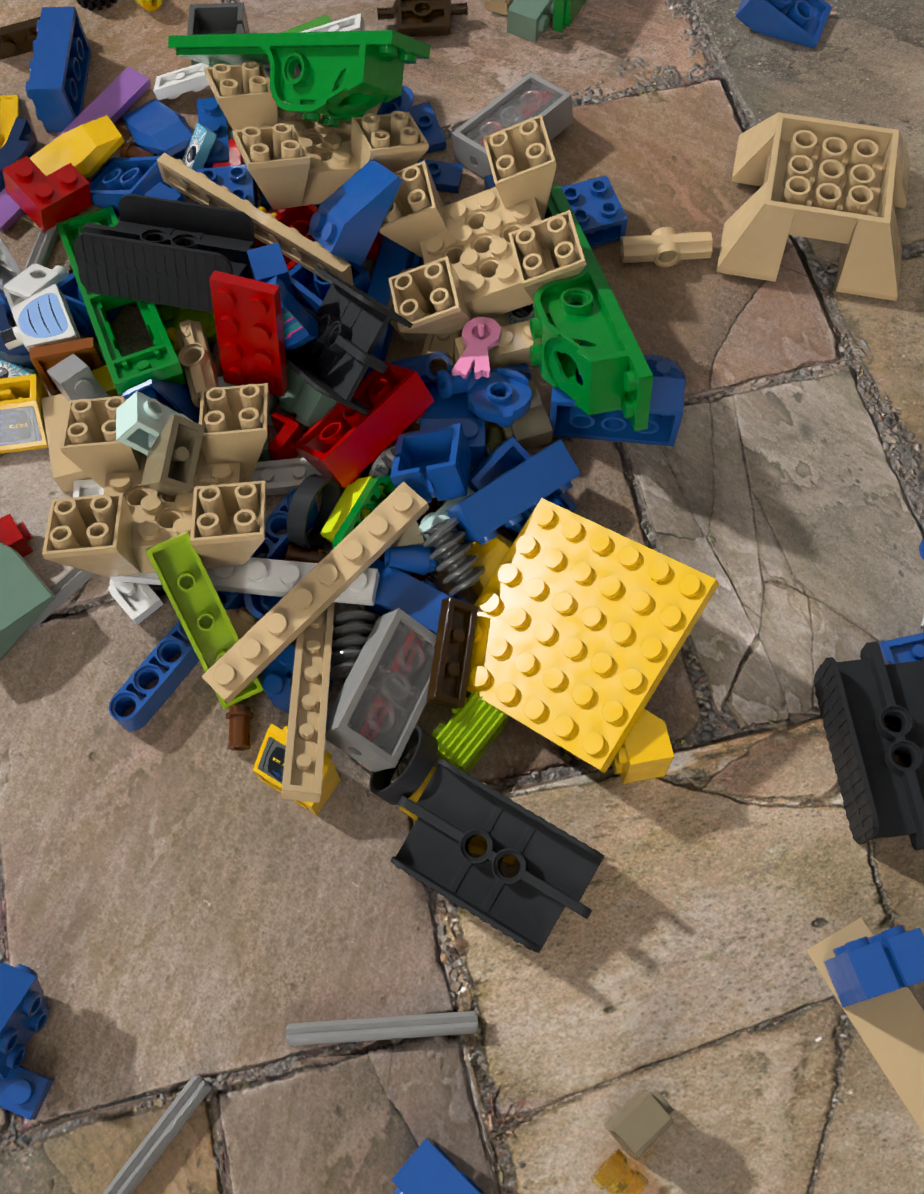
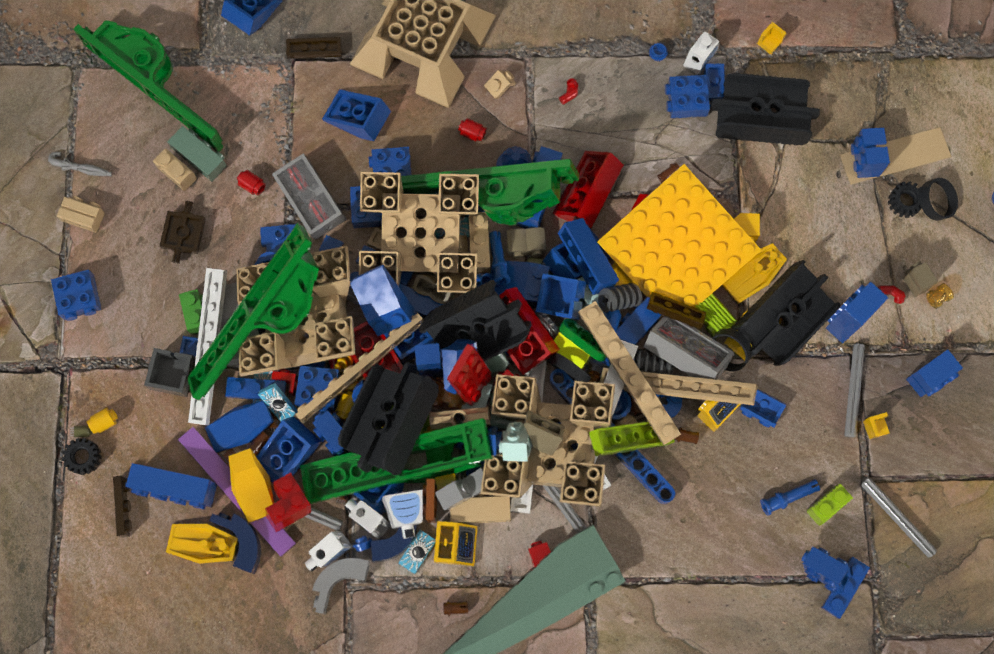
camera: 80 degrees left, 10 degrees up
(142, 1012) = (829, 504): none -> lime brick
(143, 920) = (782, 500): none -> blue pin
(311, 850) = (765, 409): none -> blue bracket
(314, 1086) = (876, 426): none -> yellow panel
(448, 112) = (275, 234): none -> blue plate
(479, 336) = (482, 249): bright pink piece -> none
(500, 409) = (520, 239): blue plate -> none
(515, 64) = (251, 182): none -> red brick
(521, 978) = (855, 311): none -> blue brick
(571, 792) = (755, 274): none -> yellow piece
(604, 1078) = (894, 291): none -> red arm
(644, 489) = (587, 196): none -> red slope
(660, 161) = (357, 114): none -> blue slope
(665, 247) = (425, 131): tan piece -> none
(689, 306) = (472, 130): none -> red brick
(720, 614) = (665, 174): none -> reddish brown pin
(746, 89) = (313, 47): none -> dark brown plate
(784, 325) = (500, 83): none -> tan bracket
(808, 433) = (572, 91): none -> red arm
(831, 1060) = (898, 206): none -> black tyre
(853, 1172) = (951, 196): none -> black tyre
(869, 607) = (687, 96): none -> blue brick

